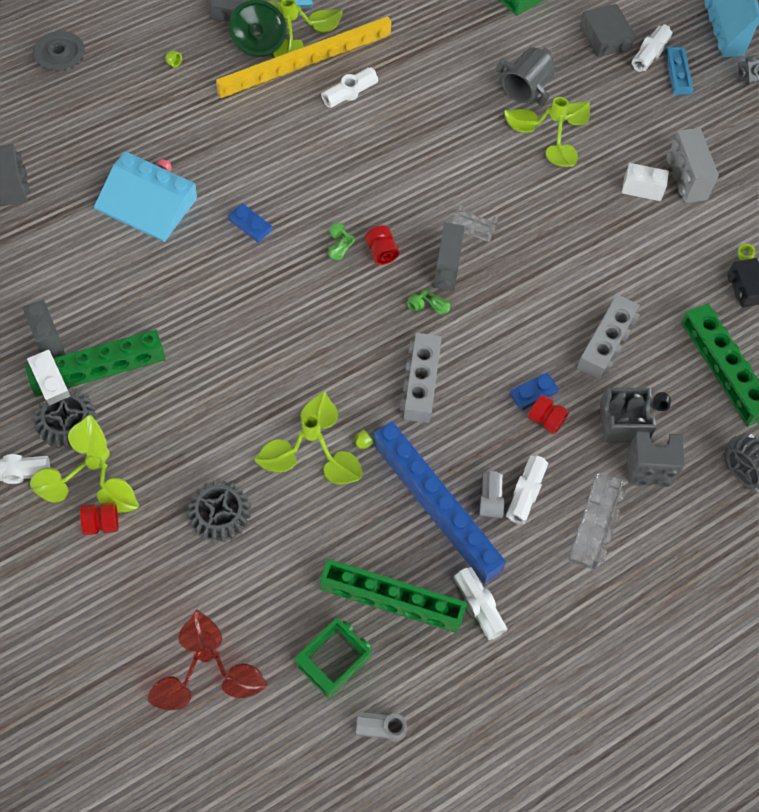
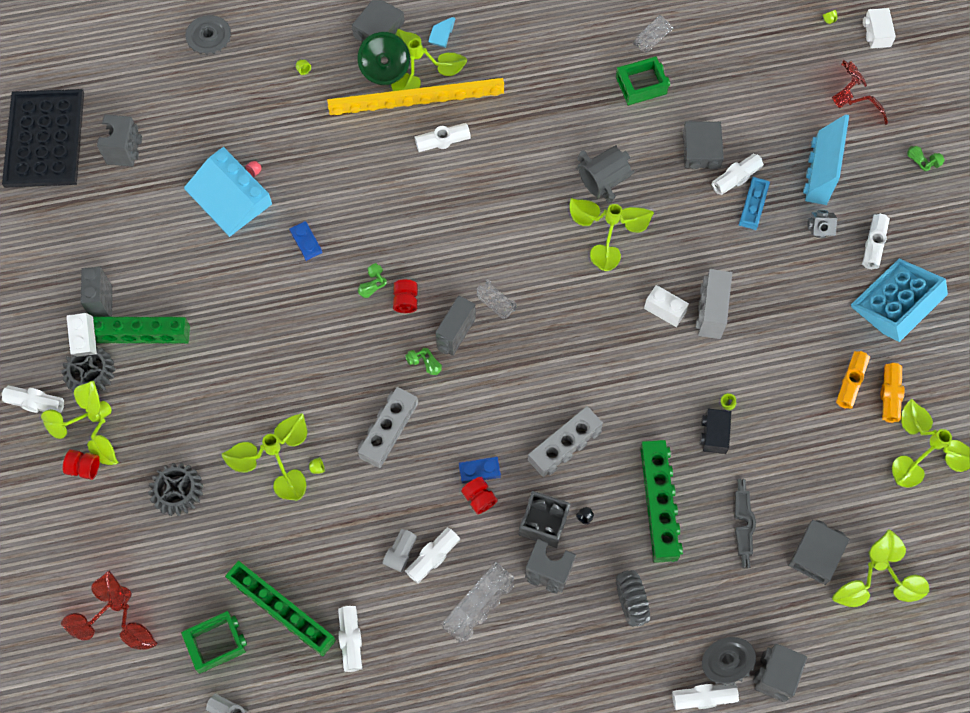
camera: 25 degrees right, 5 degrees up
(439, 502) = (353, 541): blue brick -> none

